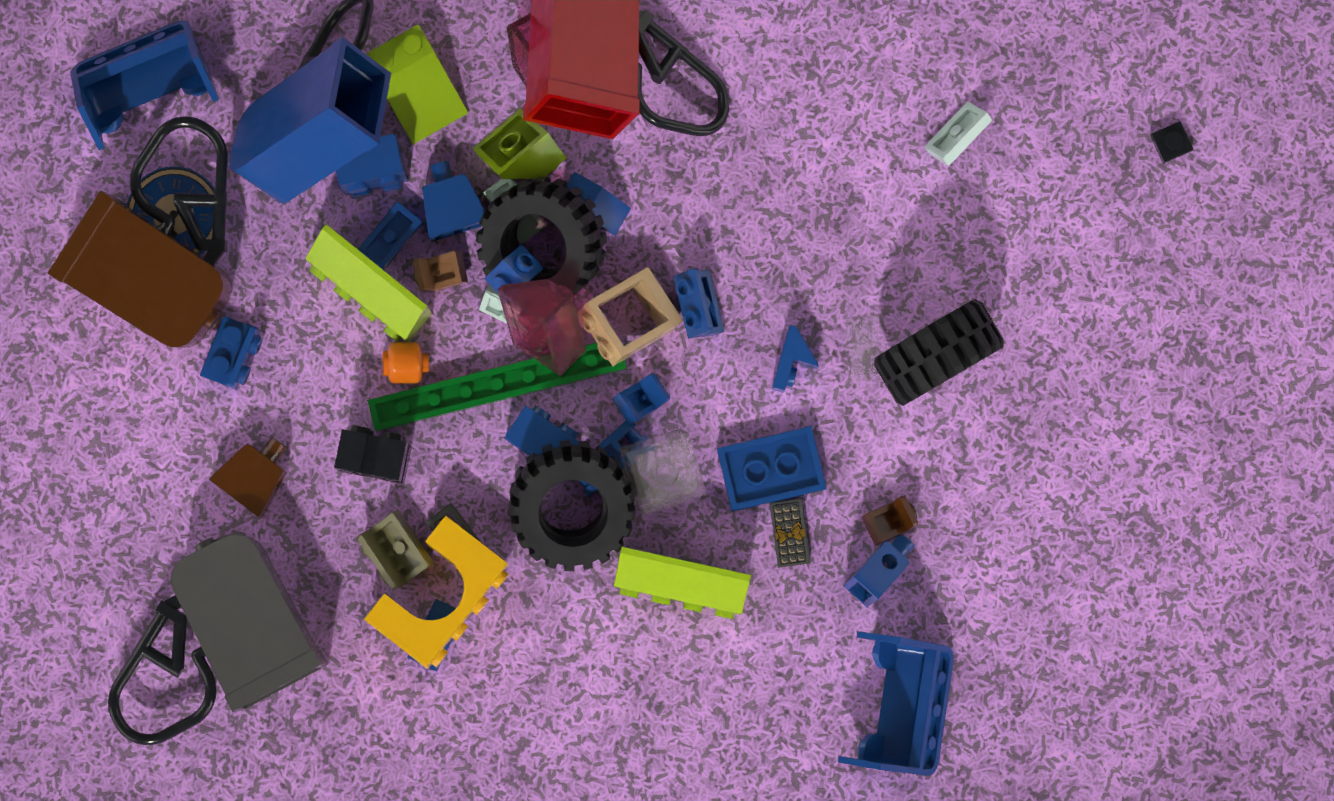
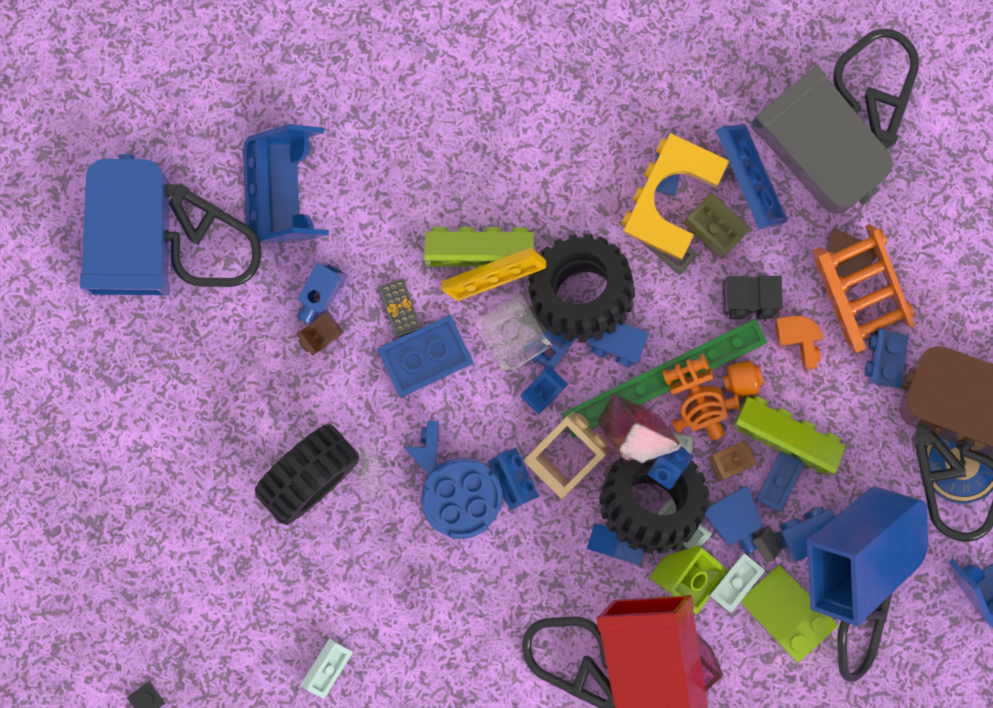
camera: 170 degrees right, 0 degrees up
(270, 444) = (836, 286): none -> orange fence
(325, 404) = (800, 331): none -> orange brick
(340, 599) = (752, 176): none -> blue tile
(420, 167) = (767, 544): none -> dark grey tile
(459, 342) = (711, 408): none -> orange piece
(466, 132) = (737, 583): none -> light aqua plate
(672, 542) = (493, 274): none -> yellow tile
(763, 294) = (461, 498): none -> blue tile
(1091, 690) = (130, 233): none -> blue piece

